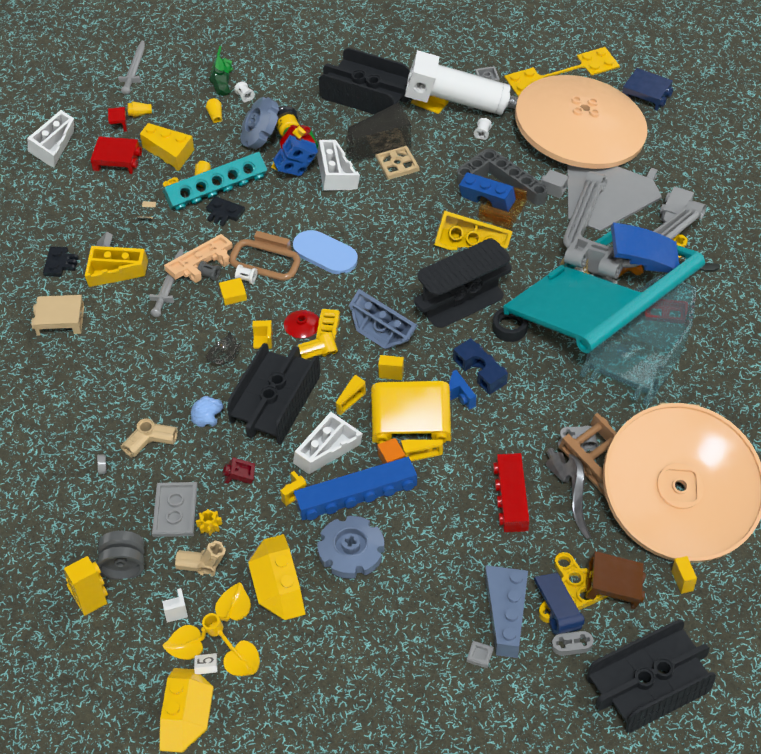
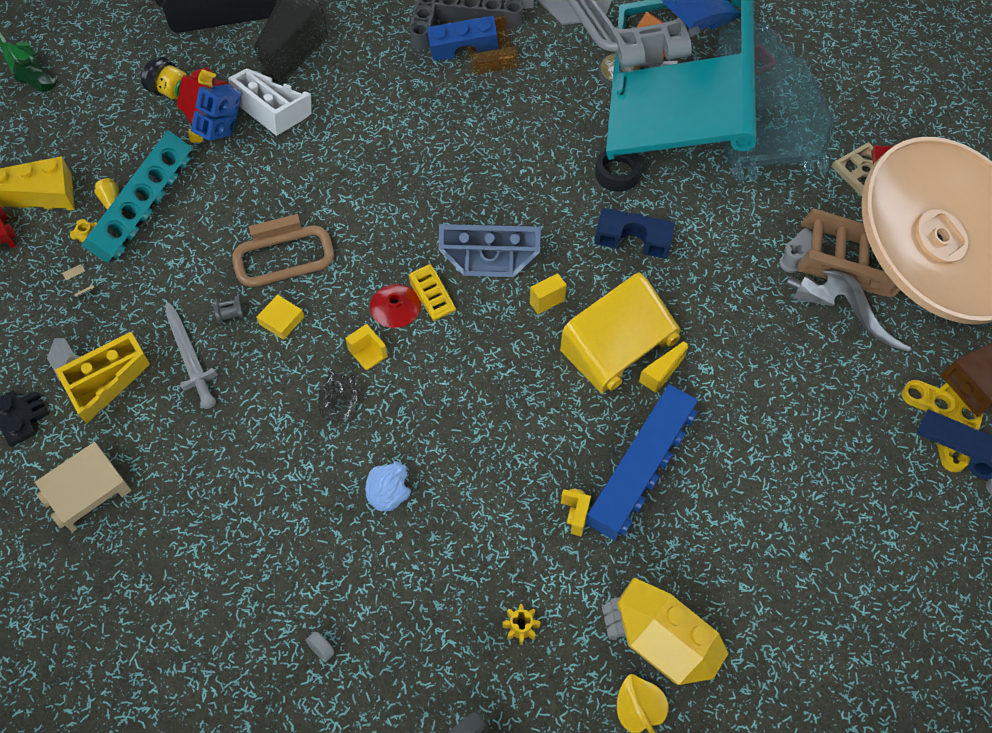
camera: 40 degrees left, 10 degrees up
(146, 433) = (339, 578): tan piece -> none
(175, 509) = (461, 637): light grey tile -> none
(188, 263) = (196, 313): light nougat hinge -> none
(203, 562) = (561, 679): tan piece -> none
(214, 109) = (55, 111): yellow cone -> none
(223, 211) = (178, 226): black hinge -> none
(239, 470) = (494, 533): dark red bracket -> none
(241, 271) = (278, 286): white bush -> none
(244, 91) = (74, 71): white bush -> none
(259, 123) = (135, 96): sand blue piece -> none
(273, 391) = (478, 435): black piece -> none
(322, 345) = (449, 317): yellow piece -> none
(325, 252) = (344, 205): light blue tile -> none
(326, 443) = (564, 430): white wedge -> none
(351, 547) = (695, 553): sand blue piece -> none
(352, 393) = (531, 346): yellow slope -> none
(390, 451) = (642, 394): orange panel -> none
(401, 169) = (320, 69): tan piece -> none
(460, 389) = (630, 265): blue slope -> none
(463, 283) = (543, 149): black piece -> none
(465, 232) = (473, 97): yellow wedge -> none
(480, 654) = (940, 557): light grey tile -> none
(506, 602) = (924, 486): sand blue wedge -> none
(512, 493) = (799, 352): red brick -> none

